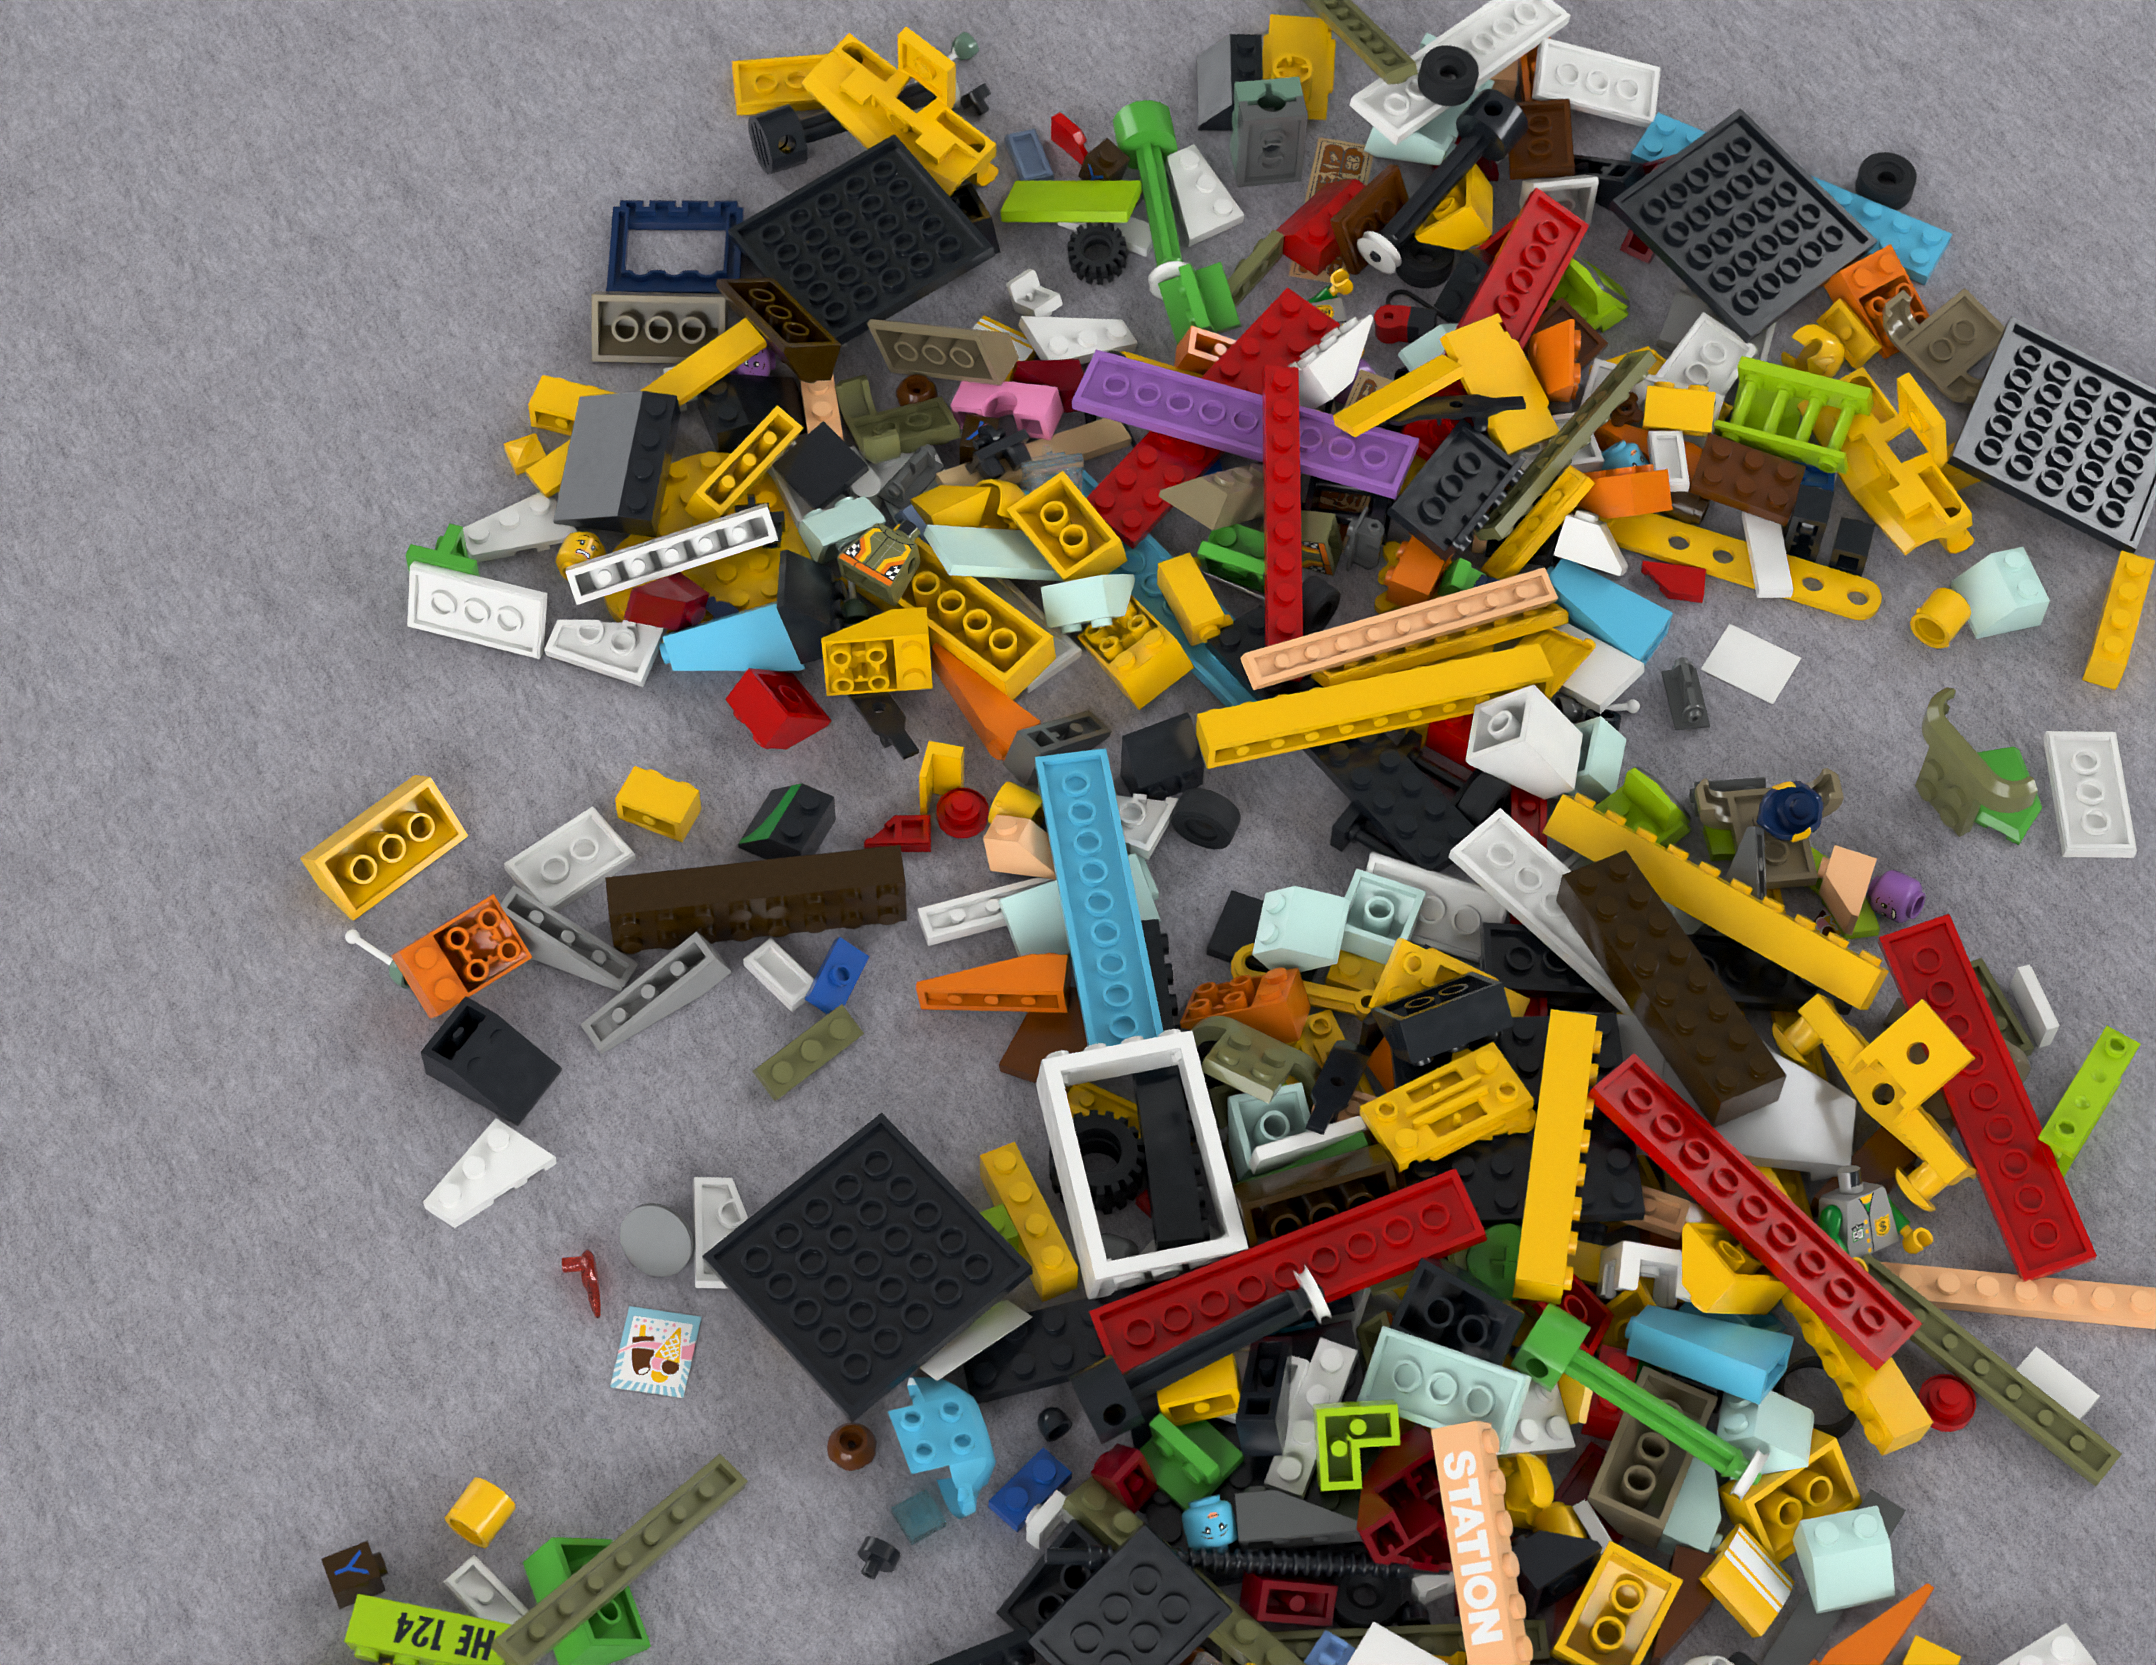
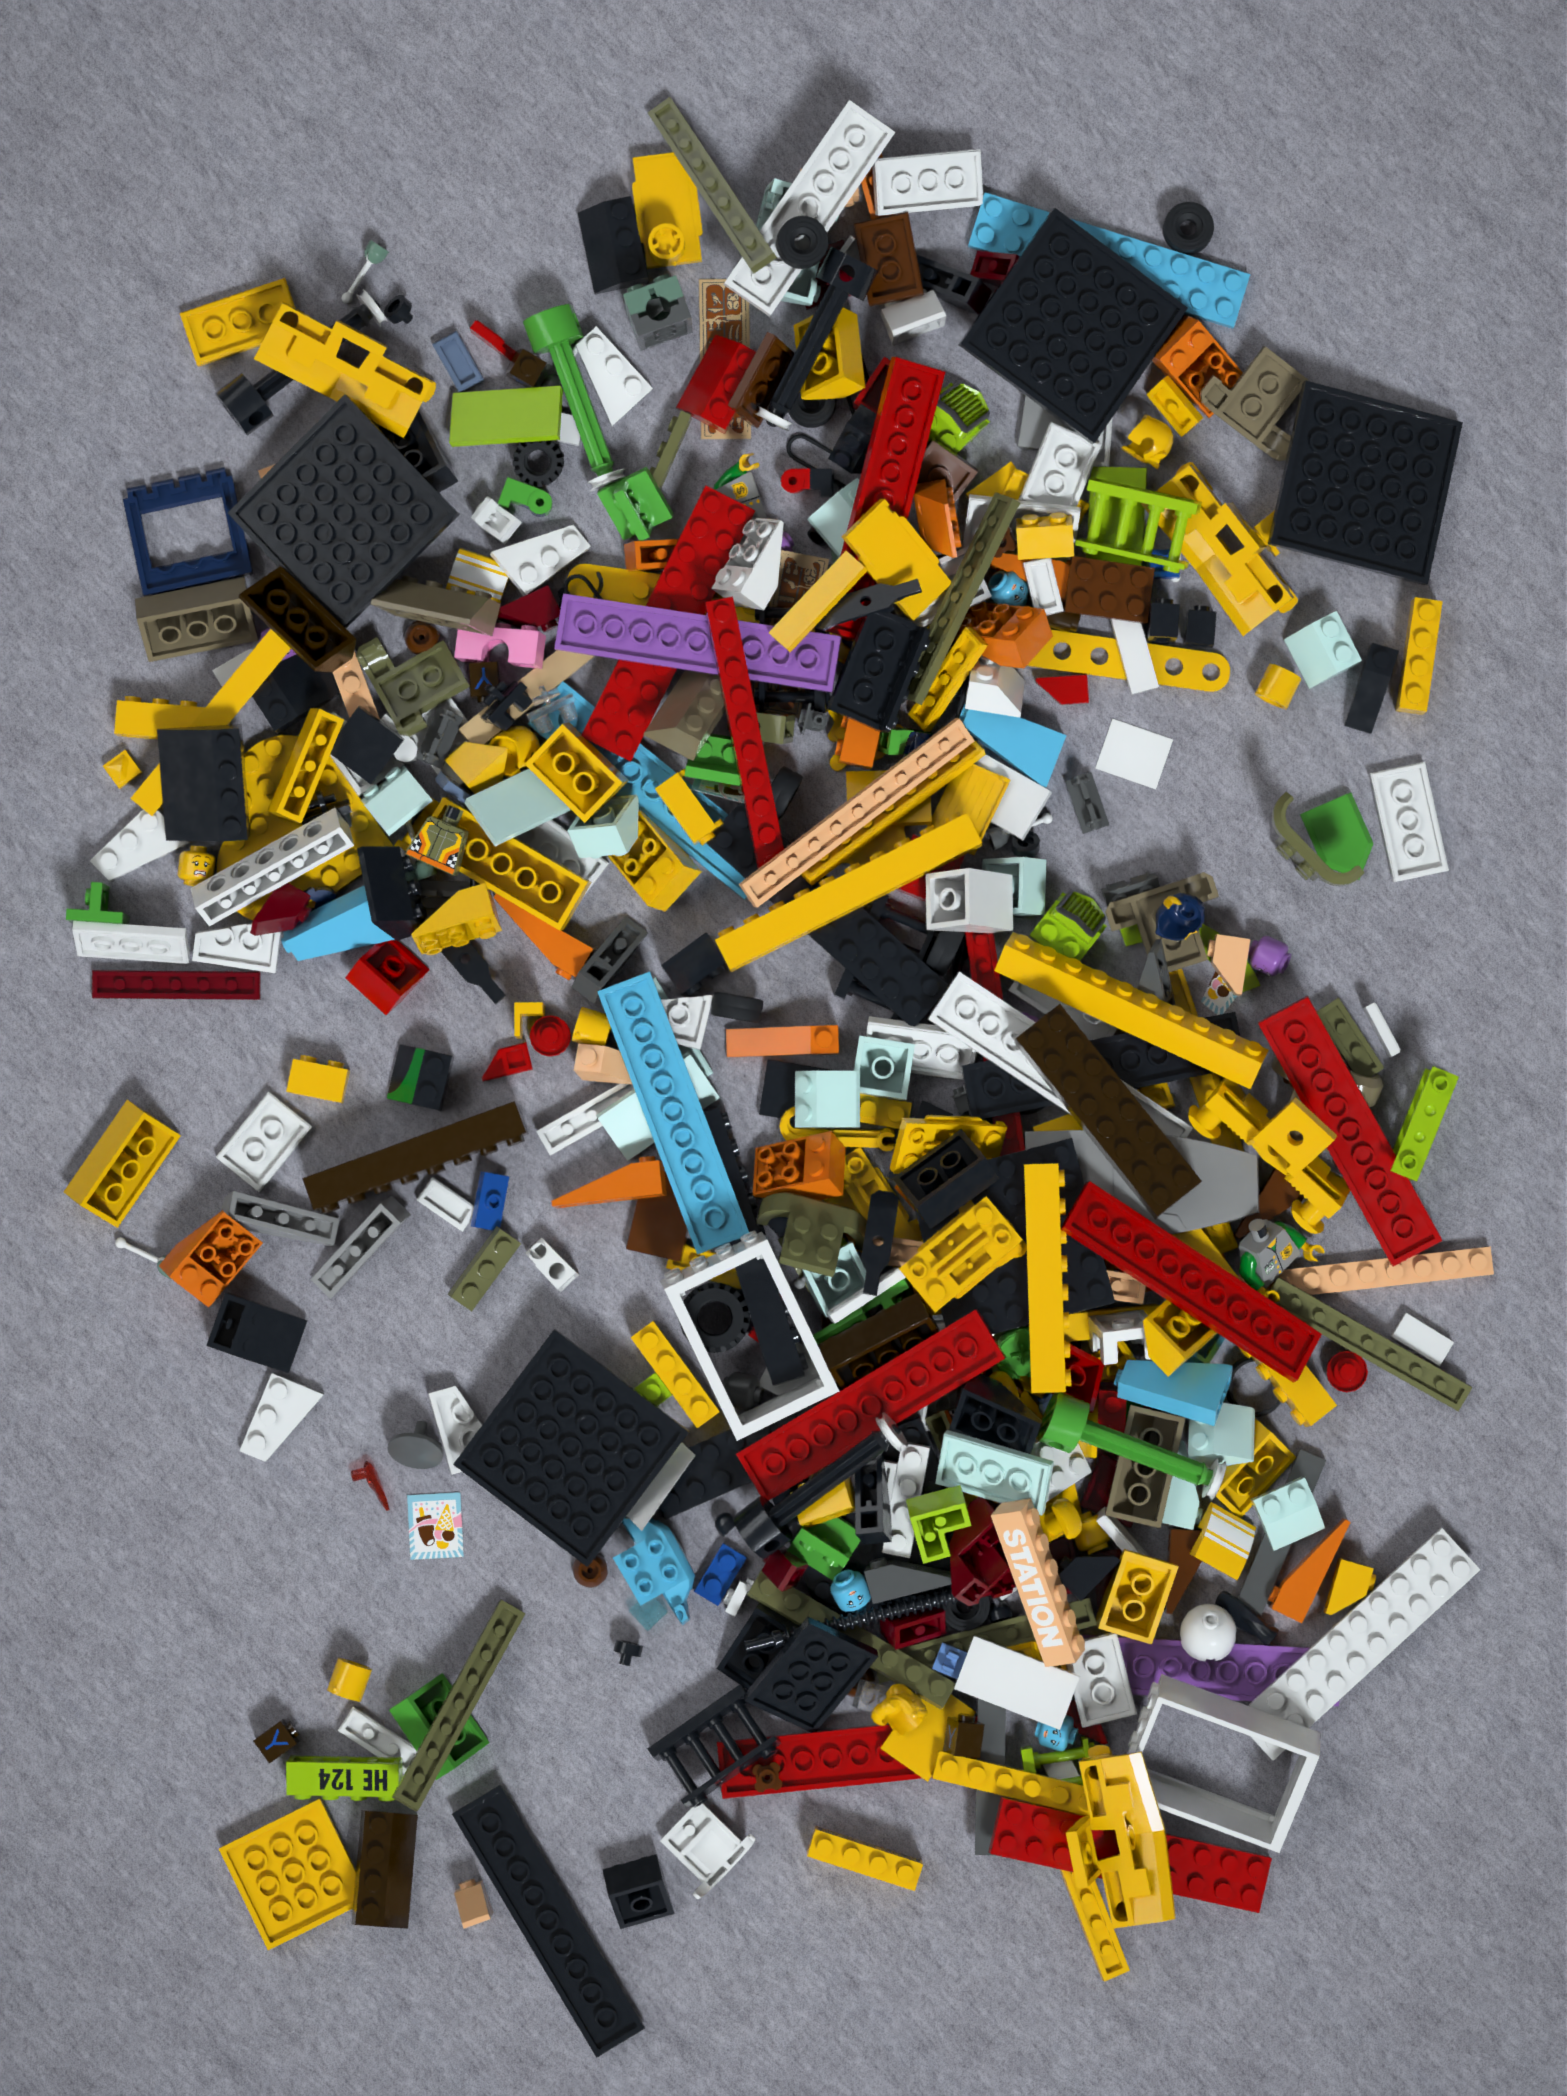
camera: 10 degrees left, 30 degrees up
(516, 677) = (176, 985): none -> dark red tile
(899, 1065) = (551, 1264): none -> white leg
(1074, 284) = (526, 496): none -> bright green leg
(1254, 870) = (782, 1041): none -> orange slope
(2056, 641) = (1371, 687): none -> black slope

